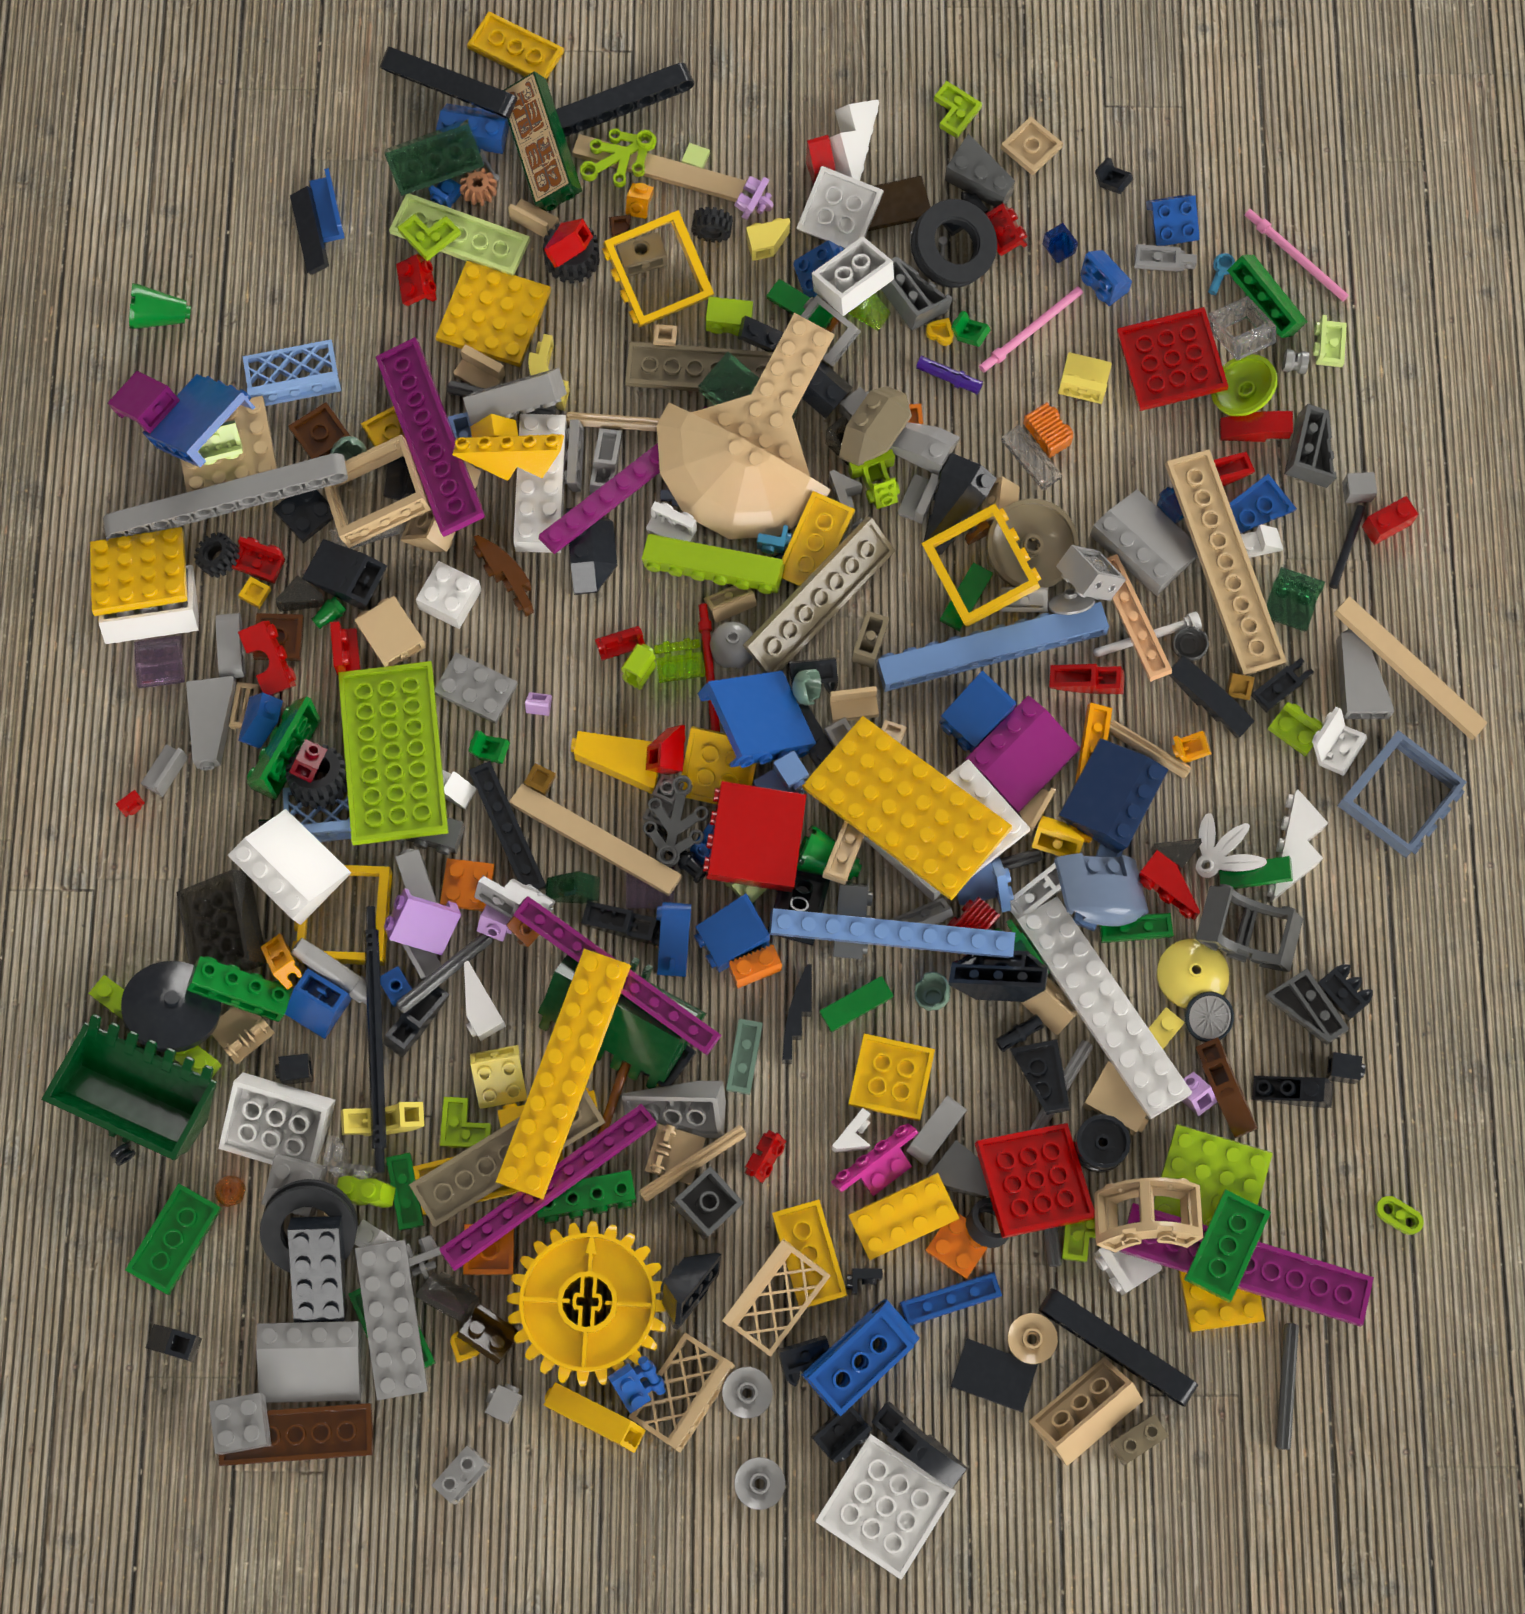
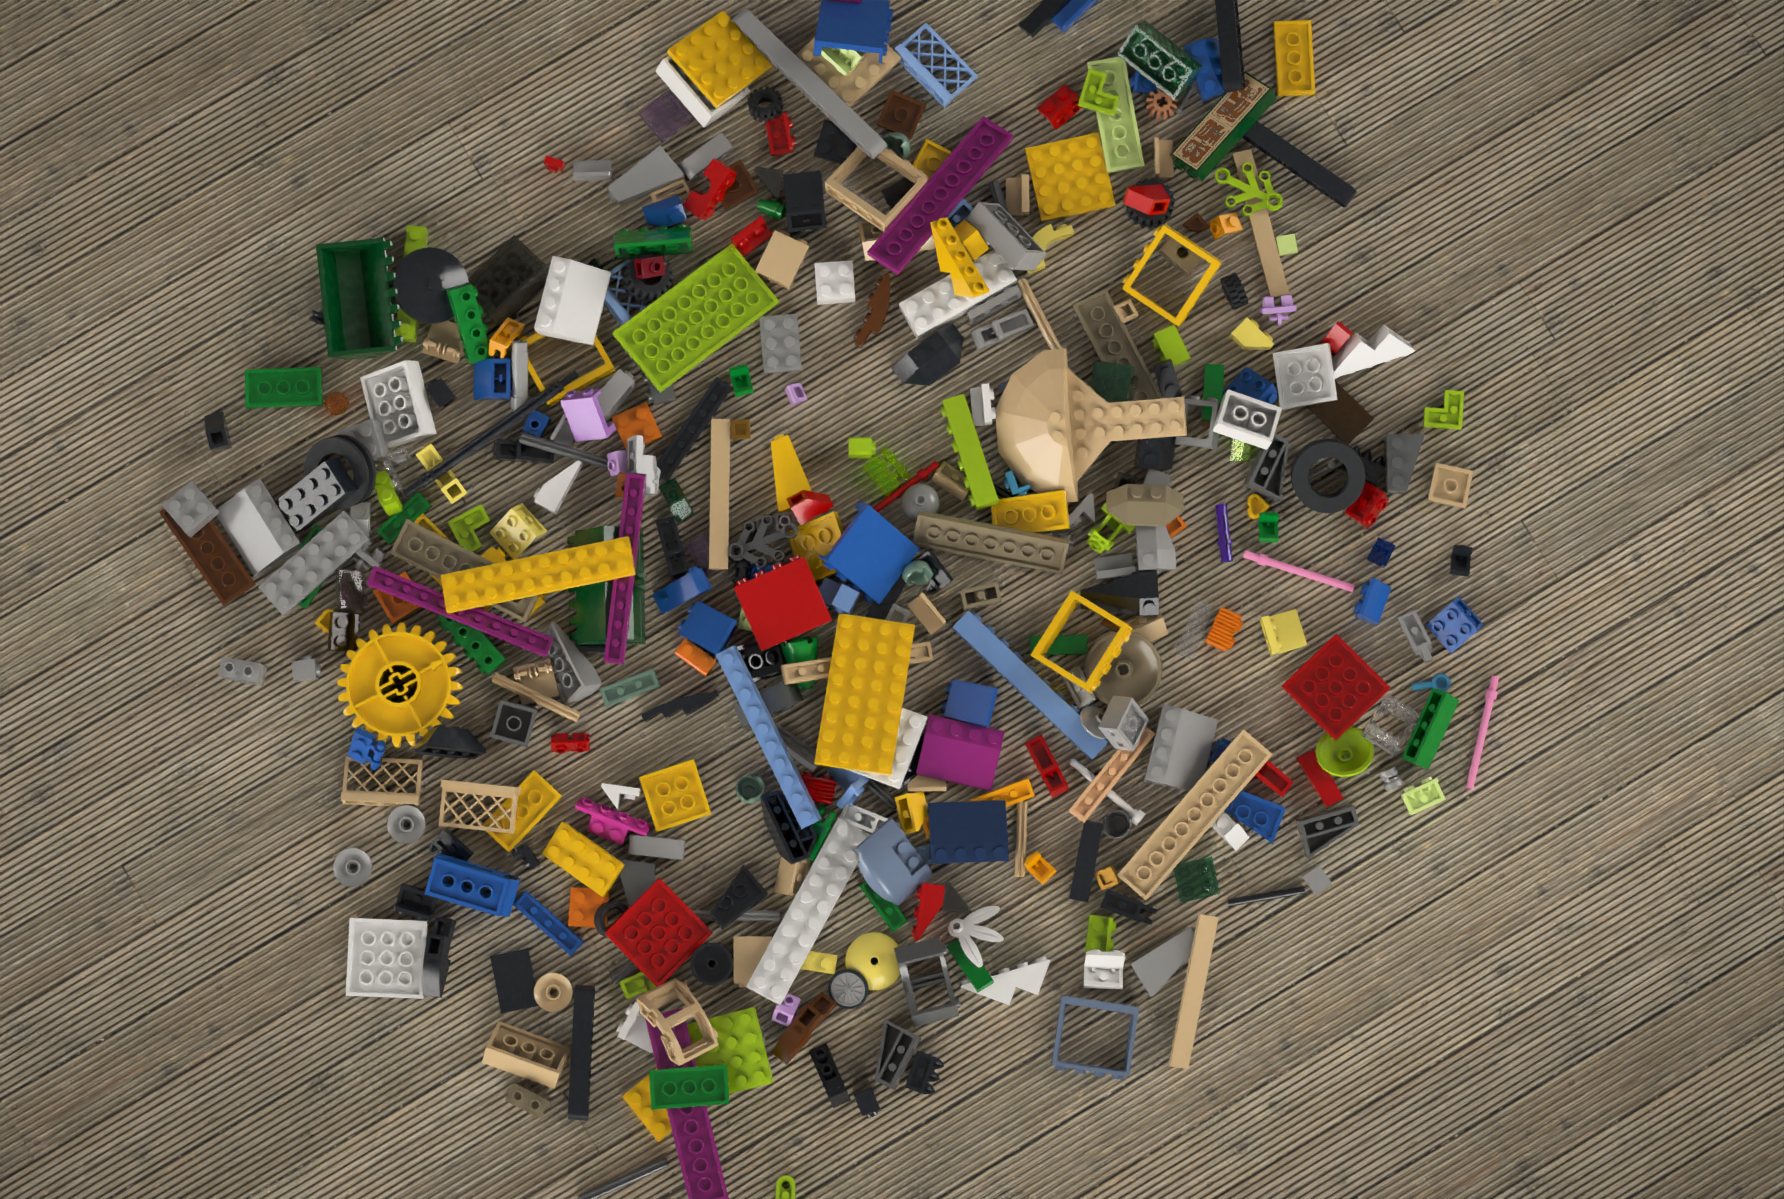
camera: 60 degrees right, 10 degrees up
(254, 592) = (755, 147): yellow plate -> none
(457, 789) = (699, 377): white slope -> none
(594, 1417) = (330, 734): yellow slope -> none
(601, 501) = (972, 348): magenta plate -> none
(614, 1096) = (549, 617): dark orange bar -> none
(619, 642) = (874, 422): red hinge -> none
(856, 1004) = (712, 742): green tile -> none
(1019, 1033) = (758, 865): black pin -> none
(1390, 520) = (1303, 916): red brick -> none

